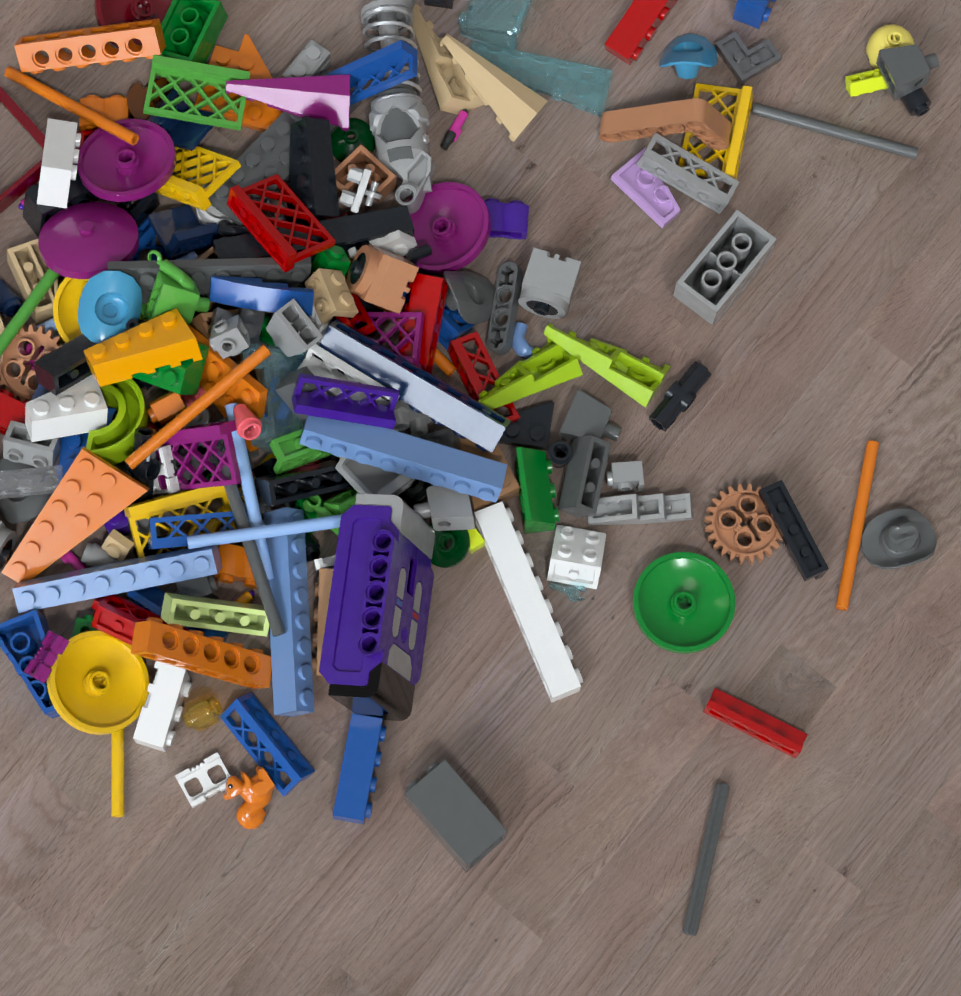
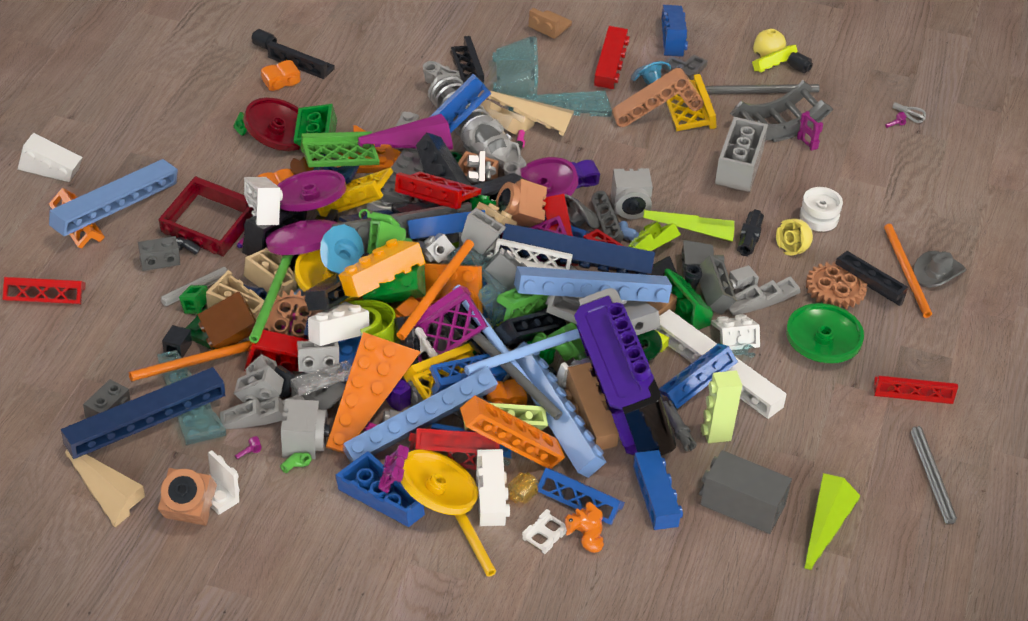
camera: 20 degrees left, 30 degrees down
(72, 105) = (274, 177): orange piece -> none
(117, 545) = (407, 400): tan plate -> none
(147, 31) = (293, 122): orange brick -> none
(246, 422) = (477, 287): coral cone -> none
(345, 409) = (542, 263): dark purple fence -> none
(431, 681) = (682, 431): none -> dark grey pin
(475, 694) = (721, 406): none -> yellowish green brick
(486, 622) = (698, 374): none -> blue fence
(556, 865) = (833, 506): none -> lime wedge
(647, 191) = (659, 138): lavender wing -> none
(687, 181) = (685, 123): light grey fence -> none
(732, 427) = (794, 236): none -> light yellow cylinder
(800, 378) = (821, 208): none -> white wheel
(829, 223) = (784, 129): none -> dark grey fence
(853, 250) = (814, 134): none -> magenta piece
(905, 69) = (787, 43): dark grey torso -> none

